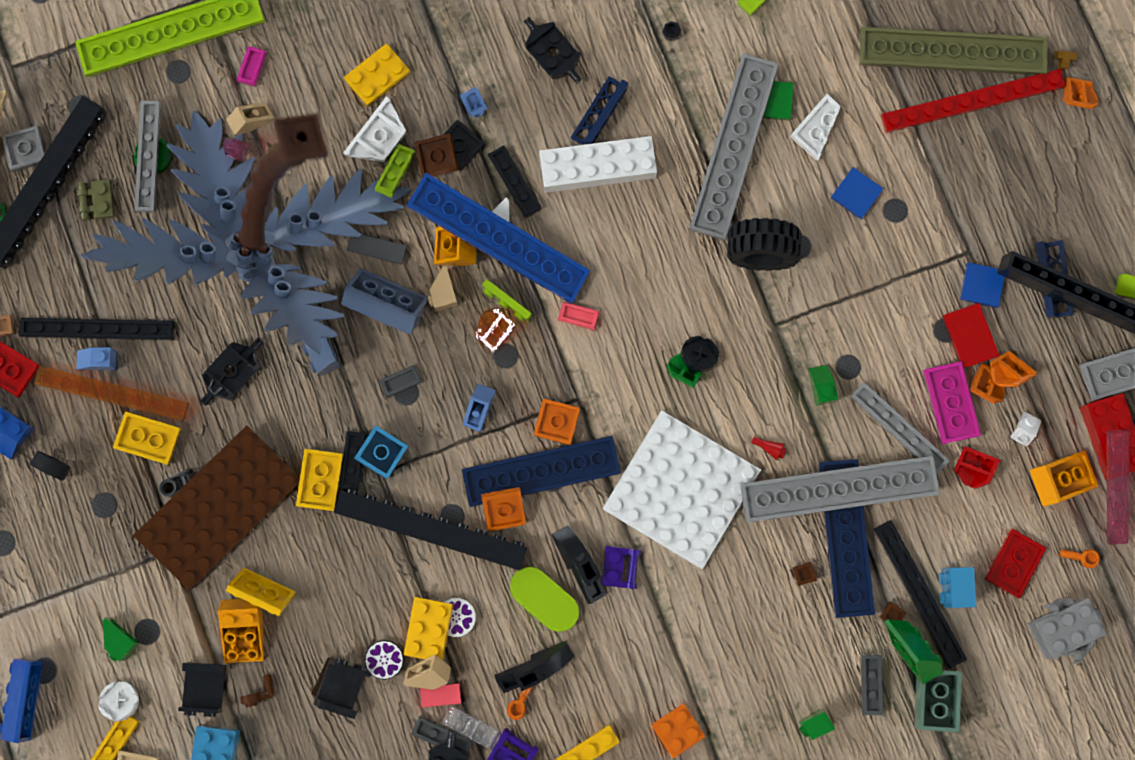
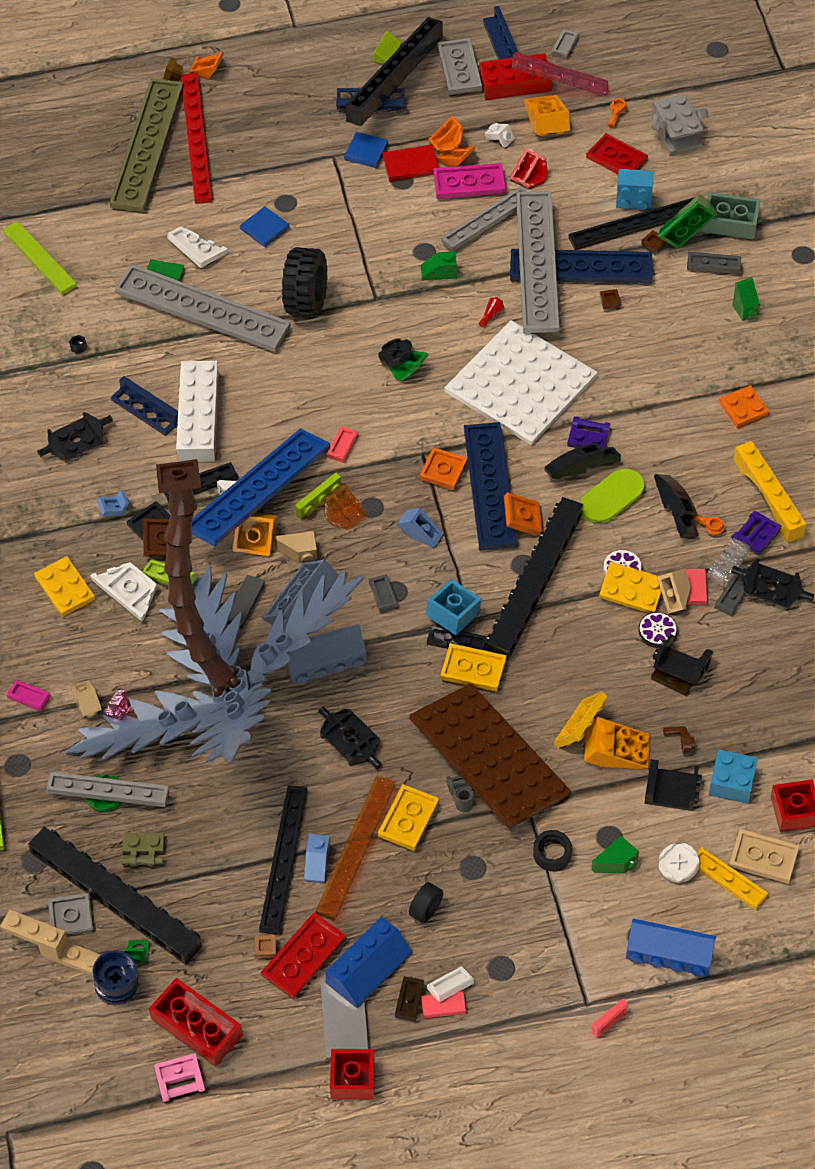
camera: 80 degrees left, 25 degrees down
(106, 578) = (552, 836): none -> black tyre

